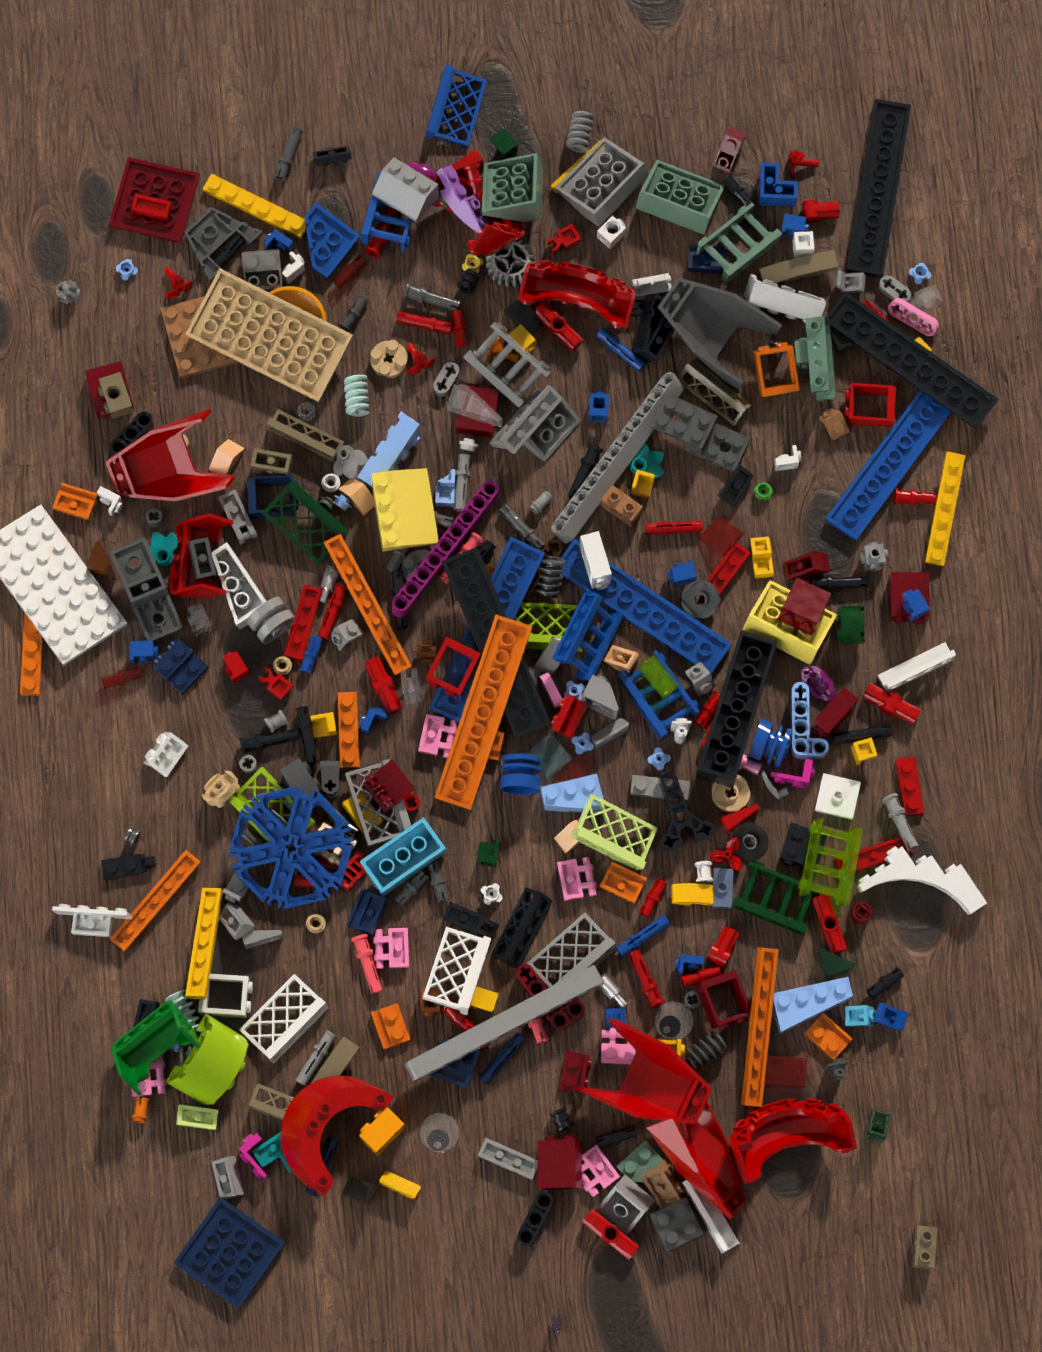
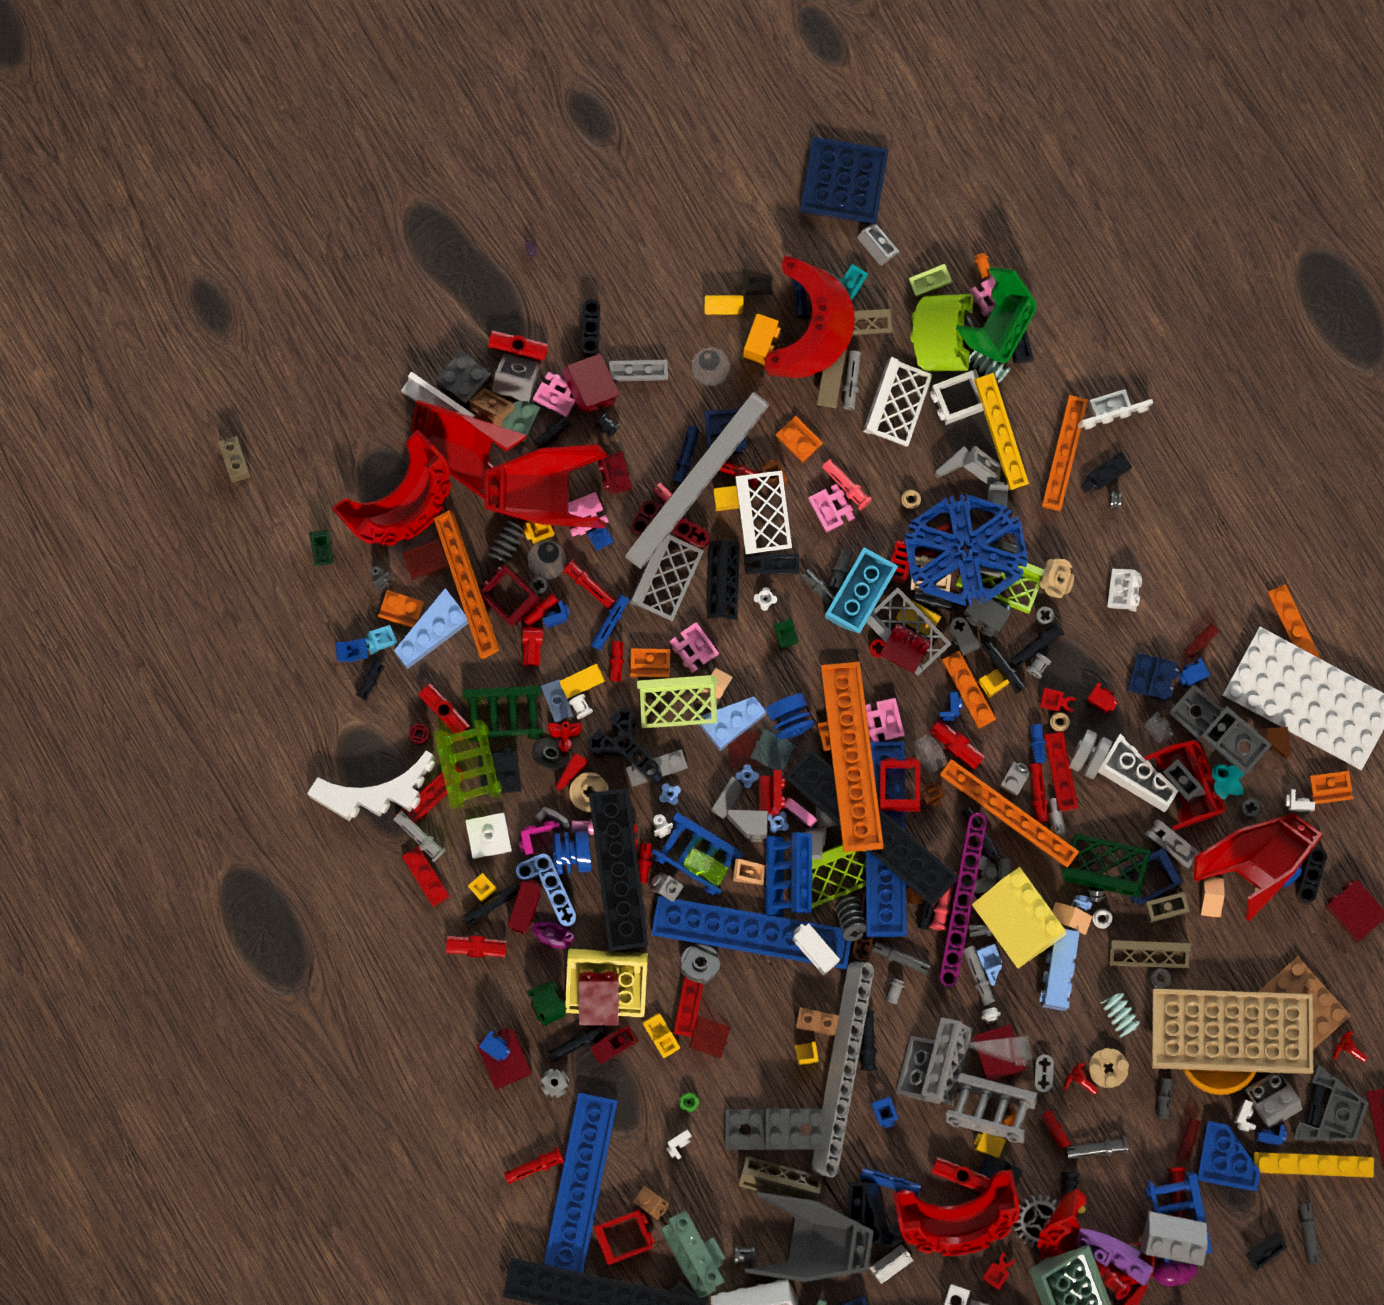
camera: 155 degrees right, 5 degrees up
(115, 384) = (1334, 895): dark tan brick -> none
(250, 1143) = (869, 266): dark pink bracket -> none
(349, 464) = (1093, 944): light grey plate -> none
(367, 912) = (869, 529): dark blue plate -> none
(423, 322) = (1083, 1122): red pin -> none
(611, 990) = (616, 560): clear piece -> none
(649, 460) = (810, 1081): teal plate -> none
(673, 527) = (779, 1013): red pin -> none
(682, 573) = (729, 982): blue brick -> none
(735, 485) = (717, 1094): black plate -> none
(781, 388) = (720, 1212): orange window -> none
(832, 964) = (424, 675): clear green slope -> none
(916, 667) = (468, 994): white fence -> none
(944, 509) = (507, 1162): yellow plate -> none

